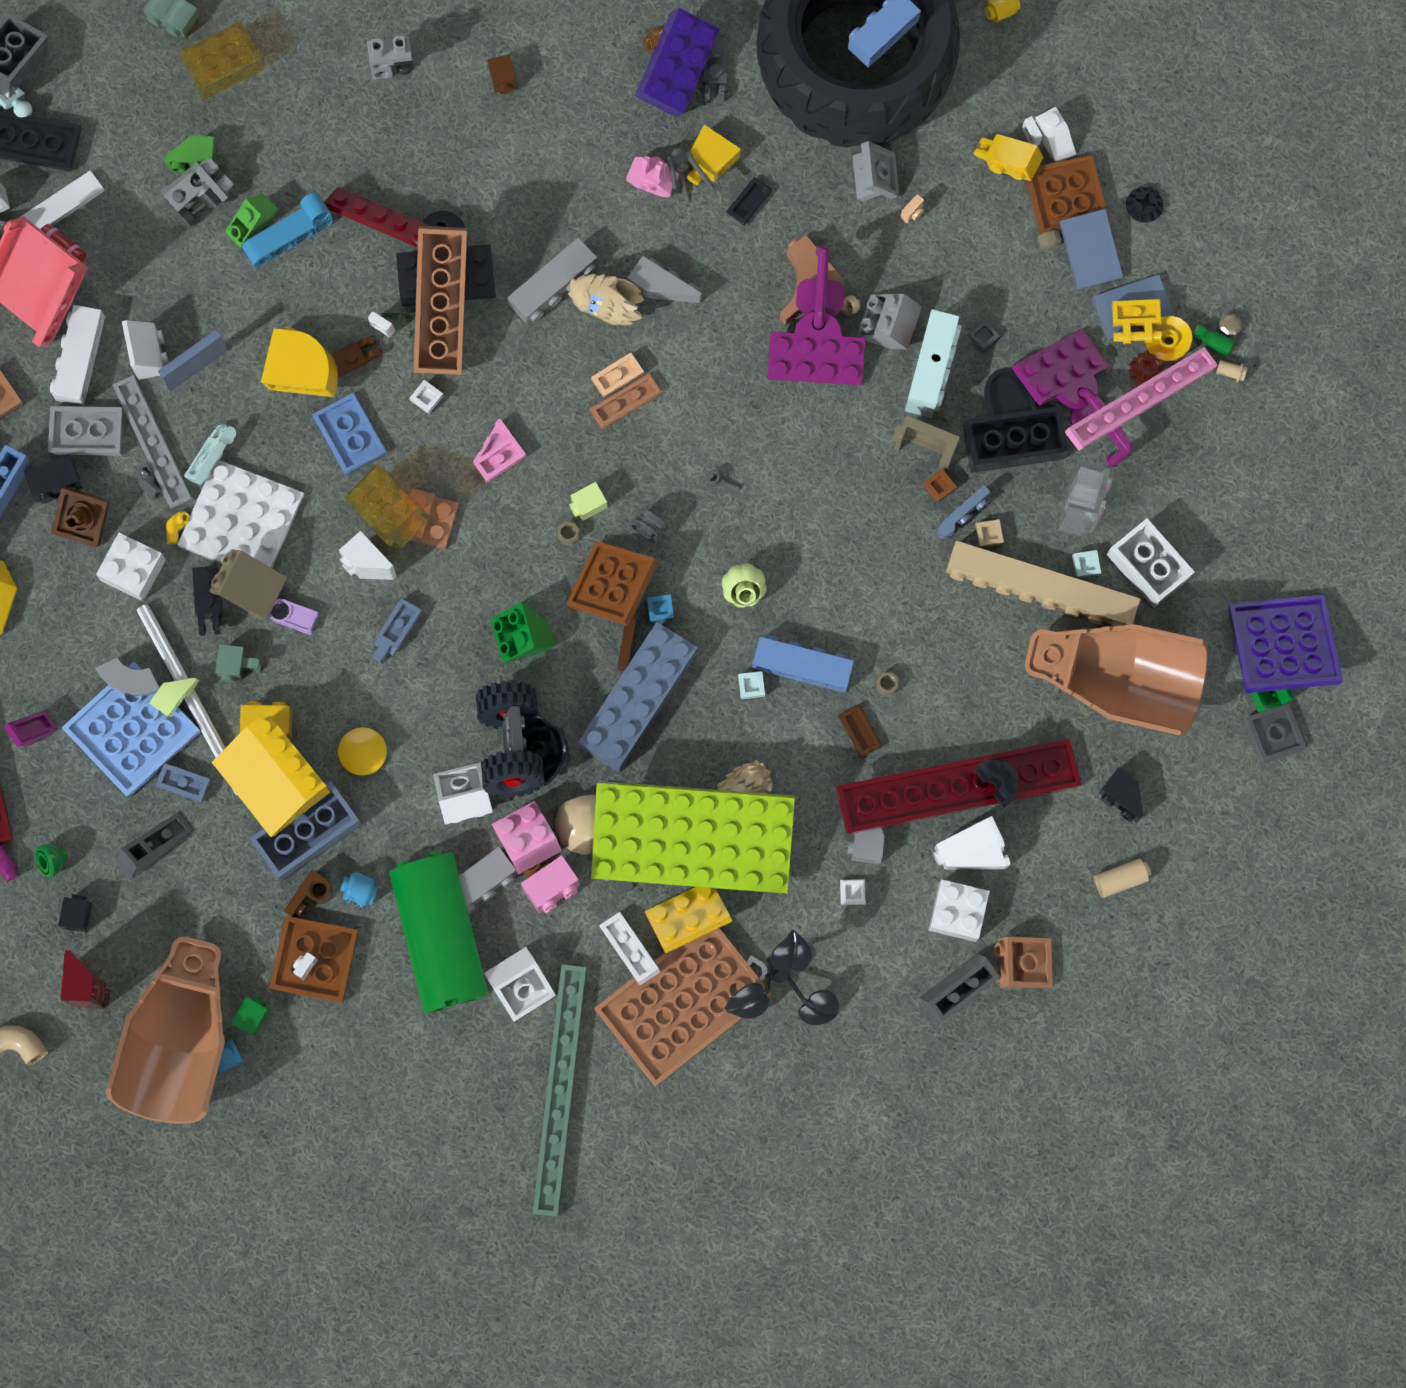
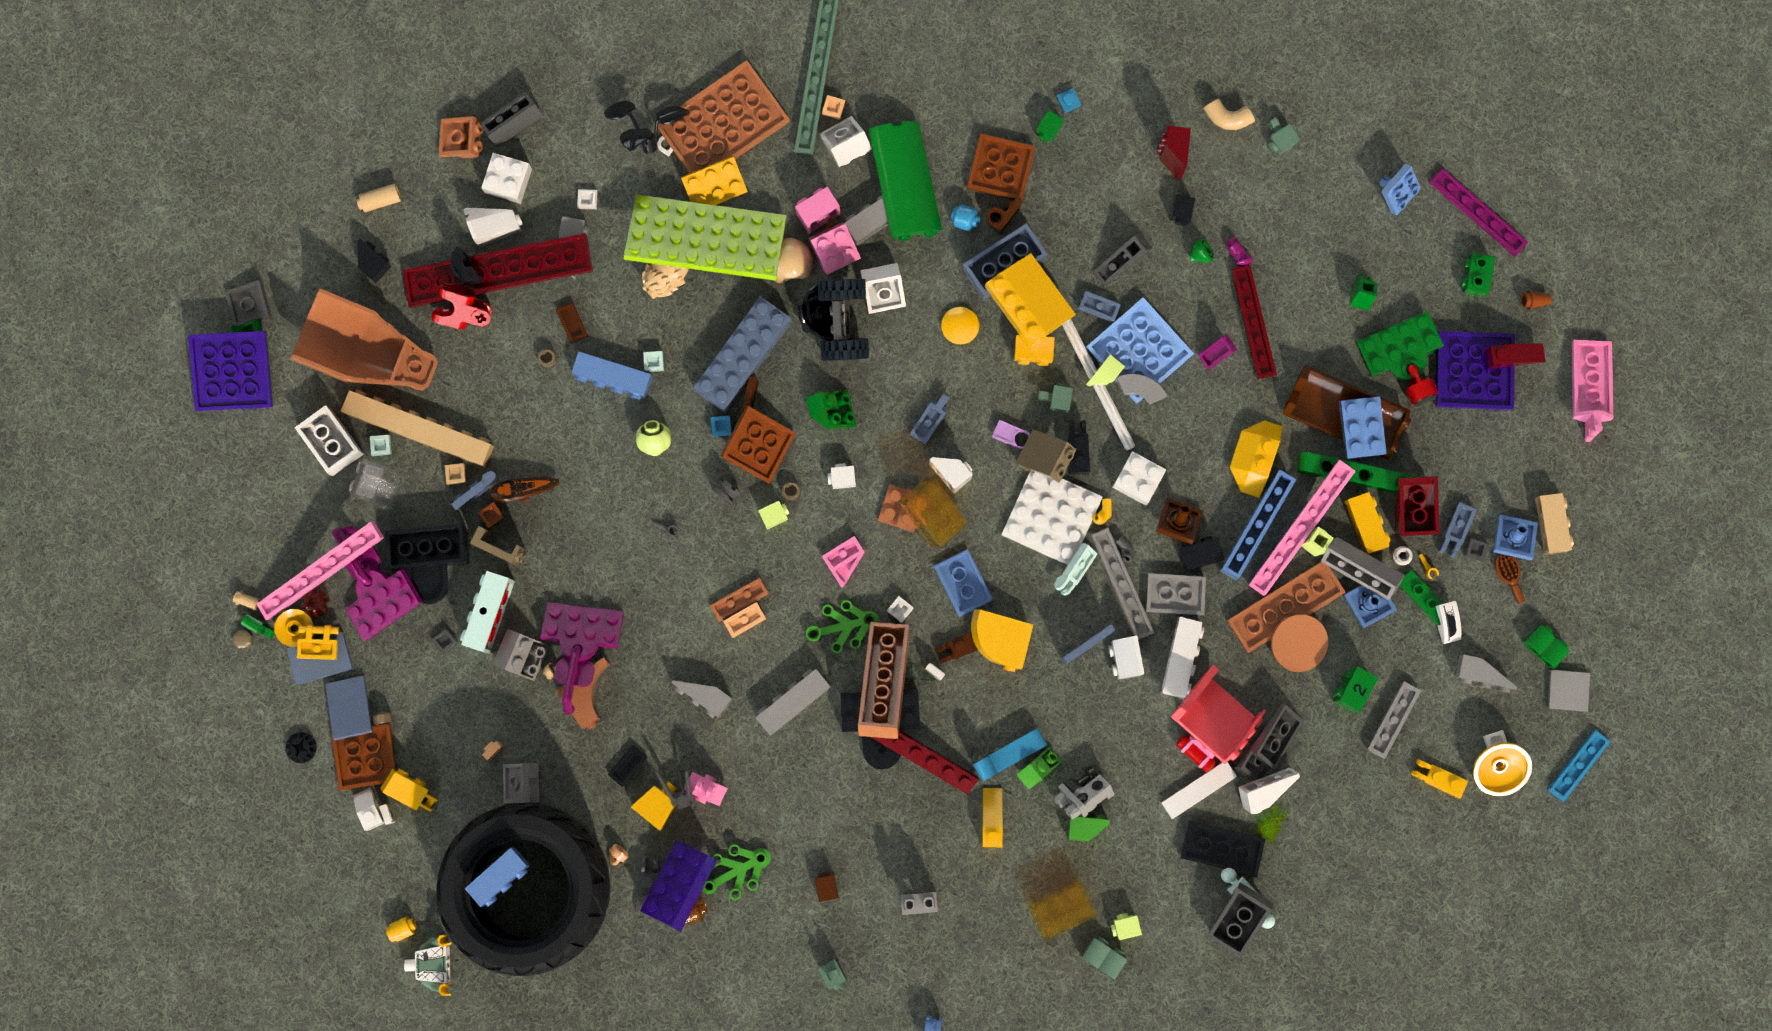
camera: 170 degrees left, 5 degrees up
(145, 46) = (1126, 926): none -> yellowish green brick
(172, 1039) = (1105, 107): nougat windscreen -> none
(304, 965) = (1007, 158): white plate -> none
(306, 158) = (992, 817): none -> yellow slope
(494, 375) = (845, 625): none -> bright green plant
(504, 552) = (842, 476): none -> white brick
(537, 1029) = (833, 107): none -> light nougat plate
(607, 91) = (739, 870): none -> bright green plant
(607, 298) = (752, 681): tan head -> none
(629, 948) = (760, 161): white plate -> none
(753, 100) = (617, 852): none -> light nougat tile
(904, 517) = (522, 488): none -> shield
(1001, 736) = (465, 308): none -> piece

